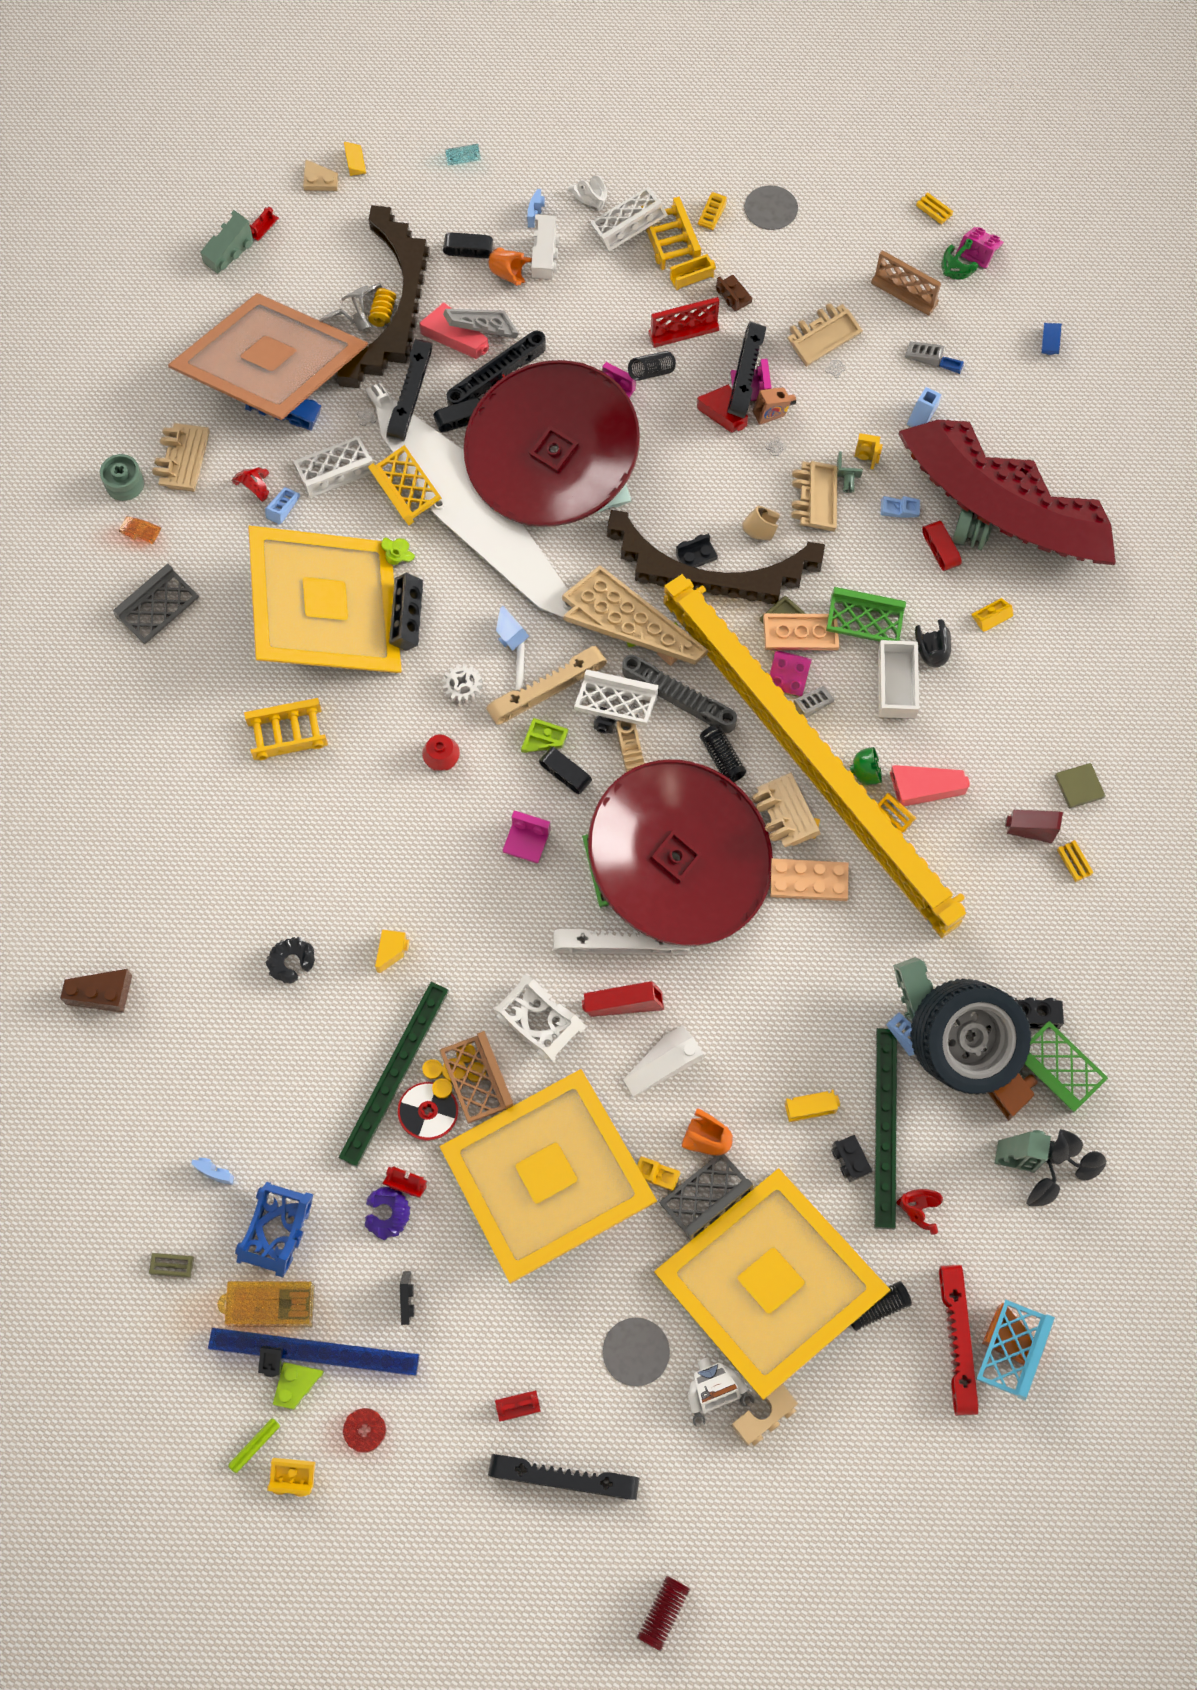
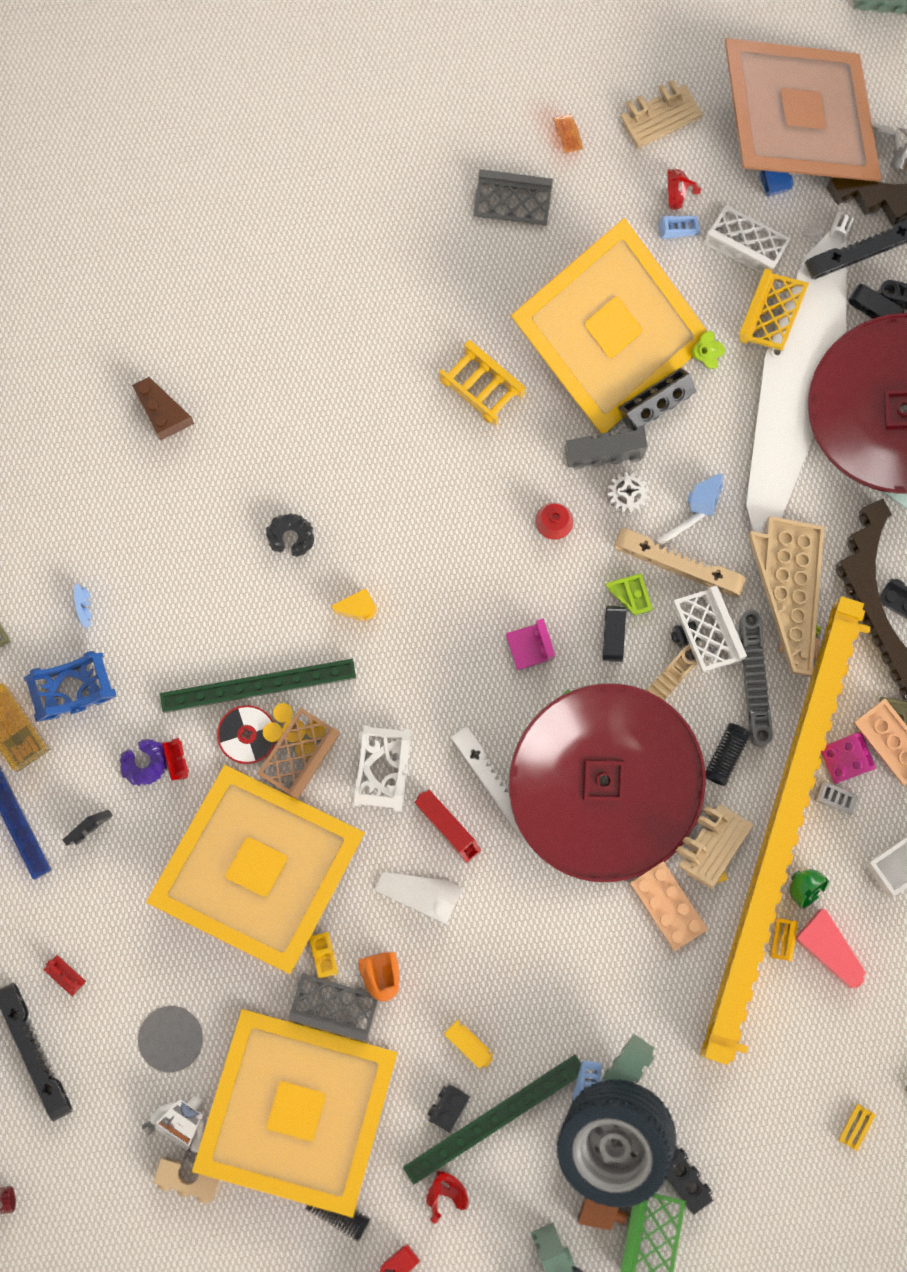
camera: 55 degrees right, 10 degrees up
(122, 477) = (602, 82): sand green wheel -> none
(415, 673) = (606, 448): none -> dark grey wedge
(1034, 824) = (862, 1069): dark red slope -> none

